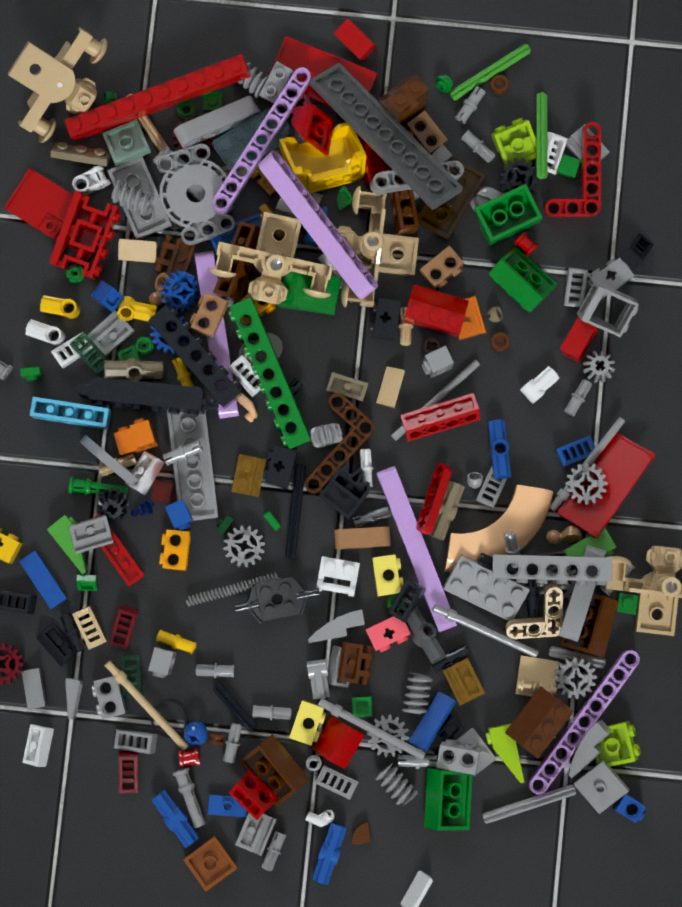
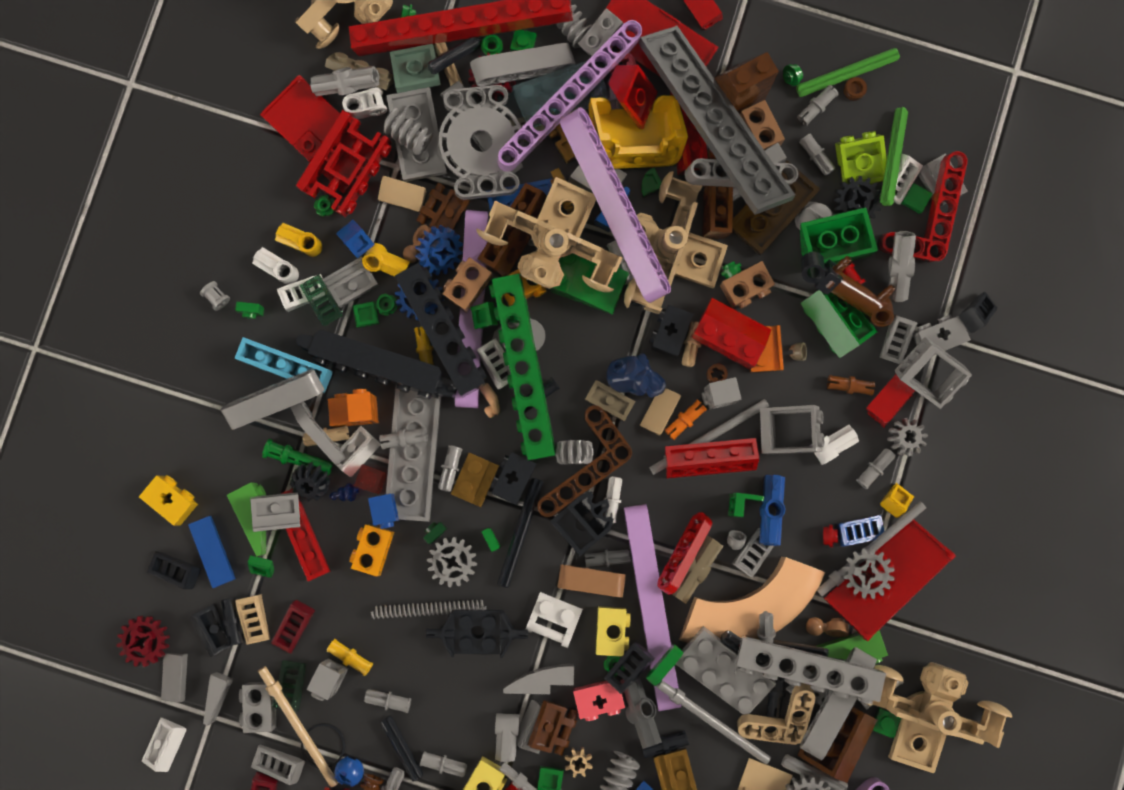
camera: 10 degrees right, 0 degrees up
(68, 442) = (272, 399): none -> light grey beam
(70, 166) = (345, 81): none -> light grey piece
(144, 370) = (380, 333): dark tan piece -> none
(157, 125) = (453, 55): none -> black axle
(226, 470) = (450, 468): none -> light grey axle
(228, 338) = (483, 315): none -> green plate
(363, 362) = (634, 376): none -> dark blue head
(385, 691) = (582, 767): none -> tan gear
(413, 390) = (685, 419): none -> orange pin
(425, 257) = (731, 269): none -> green plate
(435, 592) = (664, 665): none -> green beam
(468, 447) = (737, 503): none -> green panel
(483, 385) = (768, 435): none -> light grey window
(500, 342) = (797, 384): reddish brown tile -> none
(506, 249) = (830, 278): none -> reddish brown piece
(544, 333) = (850, 385): none -> dark orange pin
(551, 460) = (830, 536): none -> red plate
(565, 226) = (902, 265): none -> light grey piece
(601, 420) = (897, 500): none -> yellow slope

